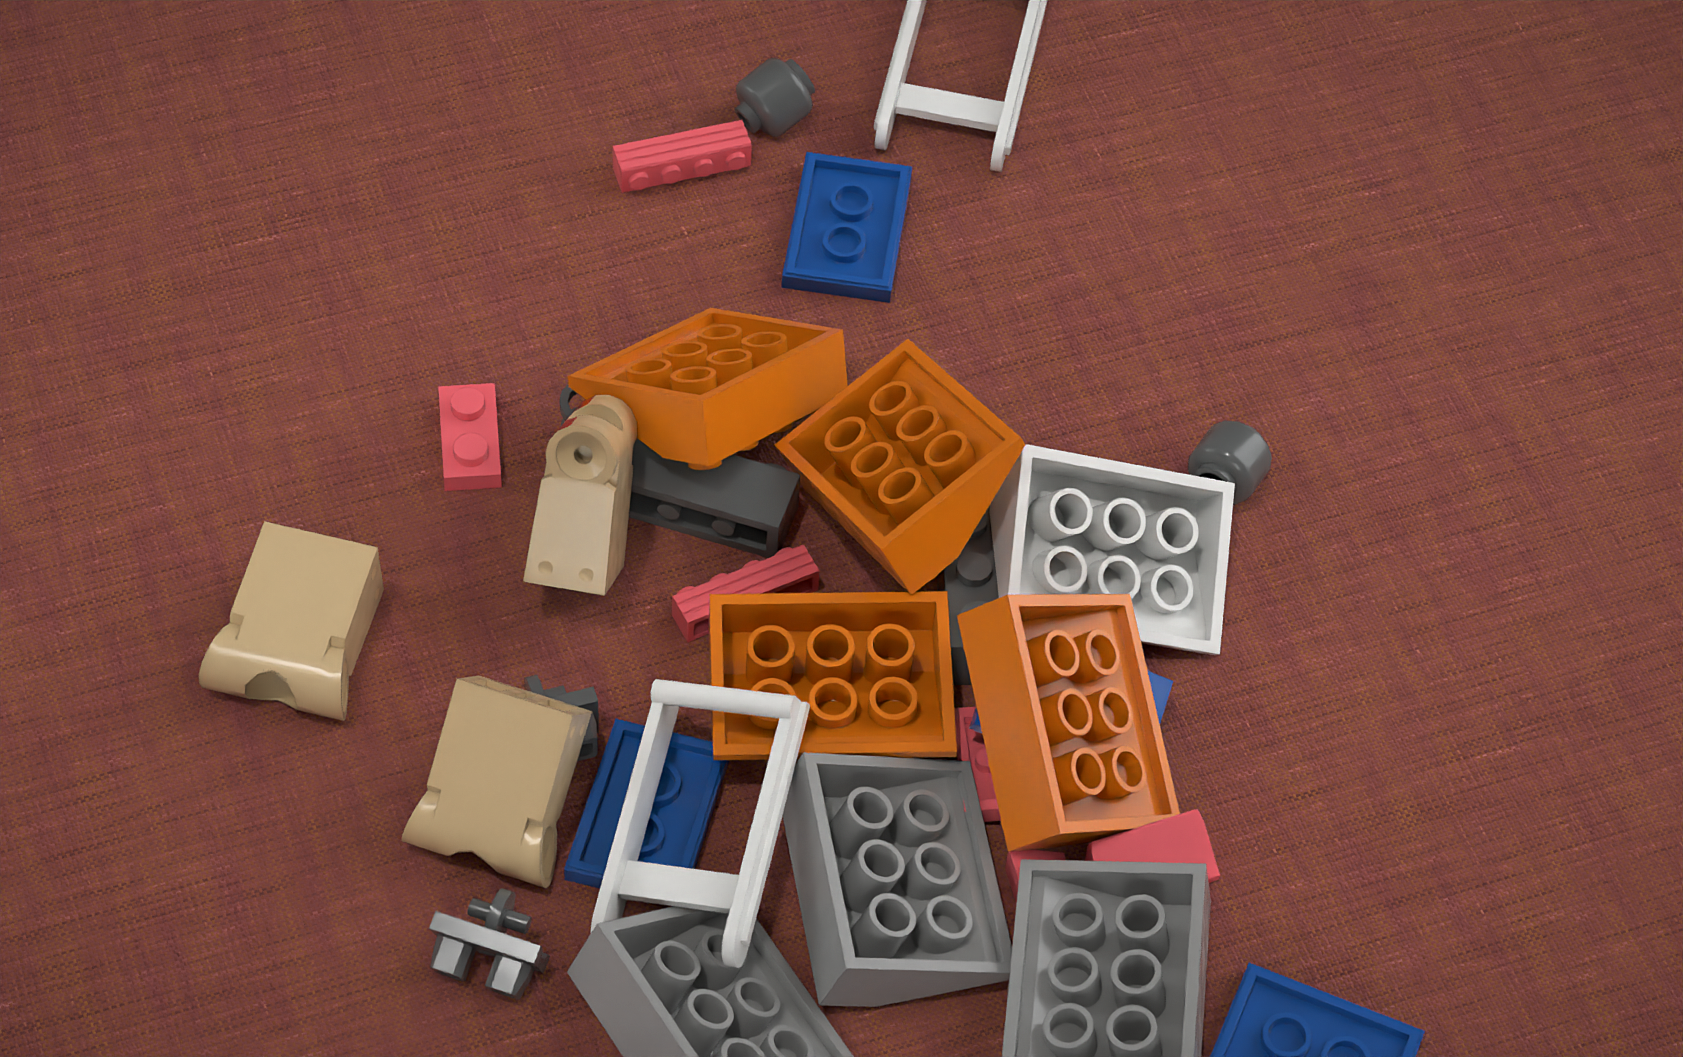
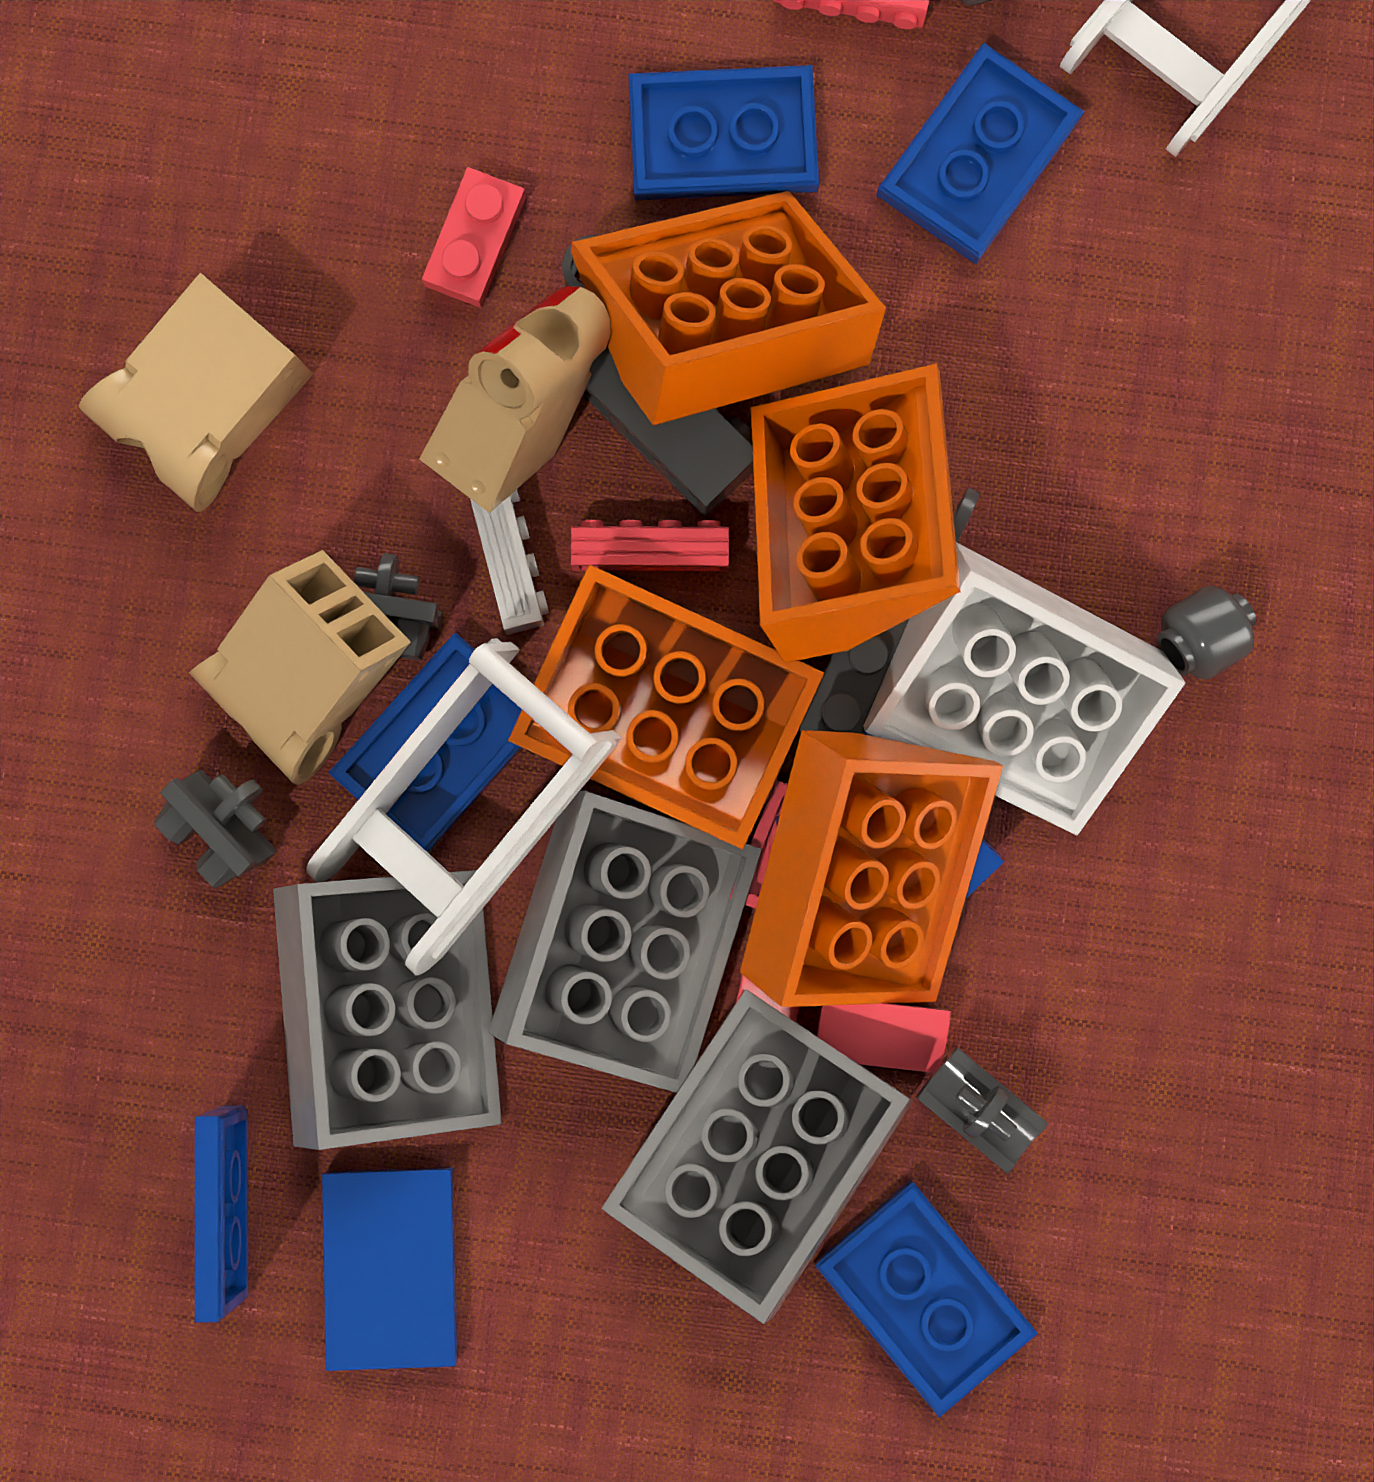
camera: 30 degrees right, 30 degrees up
(622, 640) = (510, 566): none -> white piece
(633, 289) = (723, 132): none -> blue tile
(1270, 873) = (981, 1109): none -> dark grey hips

